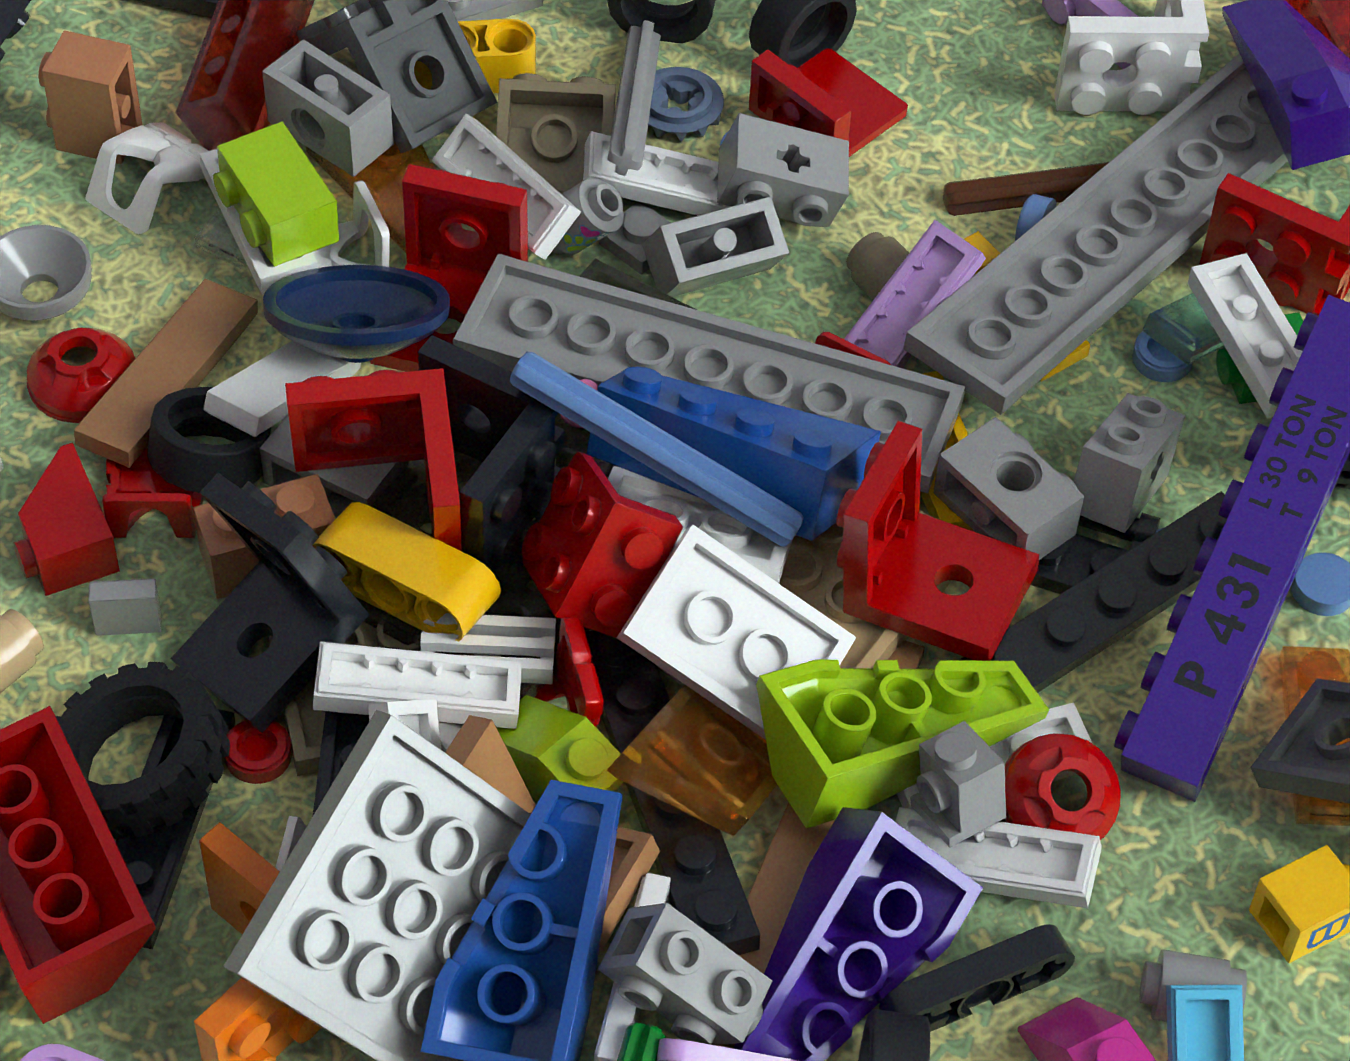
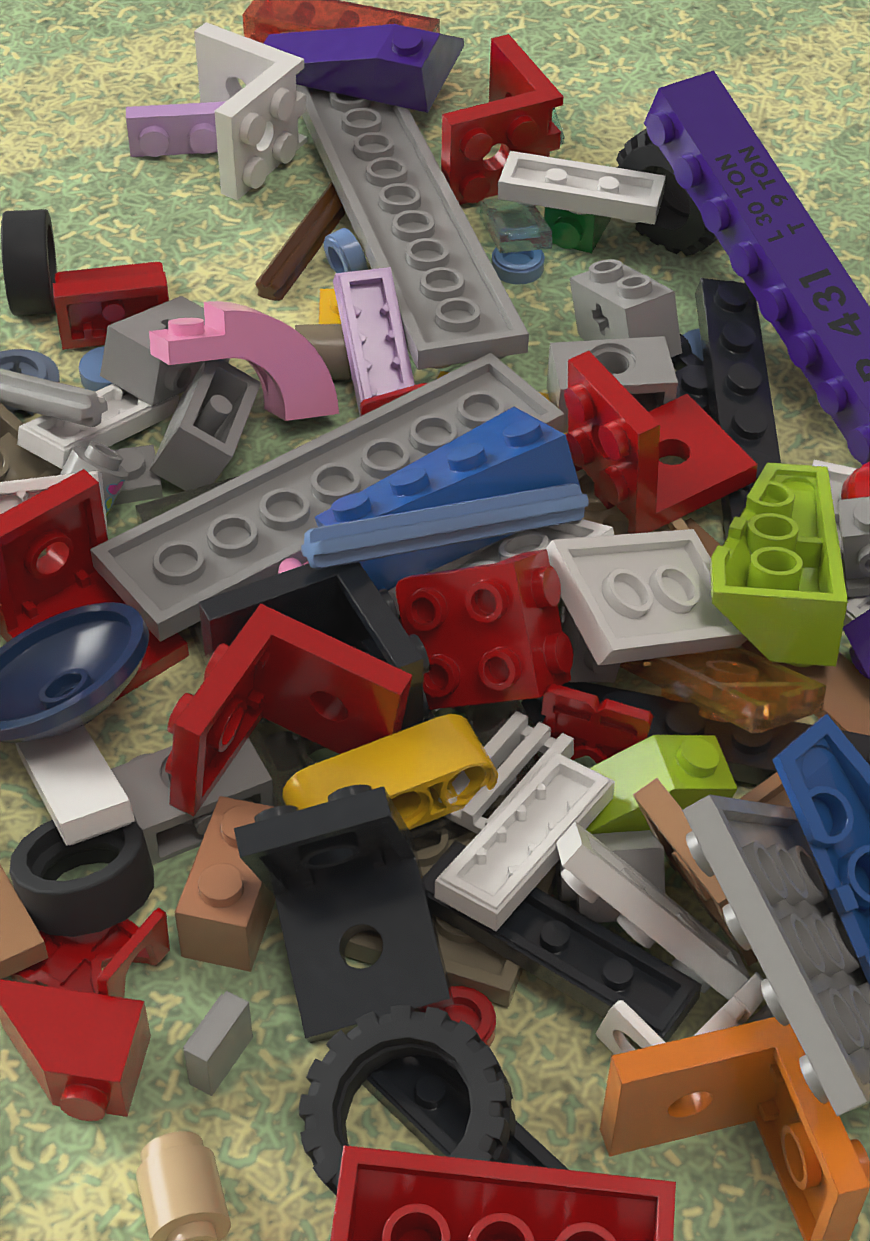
camera: 55 degrees left, 5 degrees down
(813, 222) = (288, 365): none -> bright pink arch

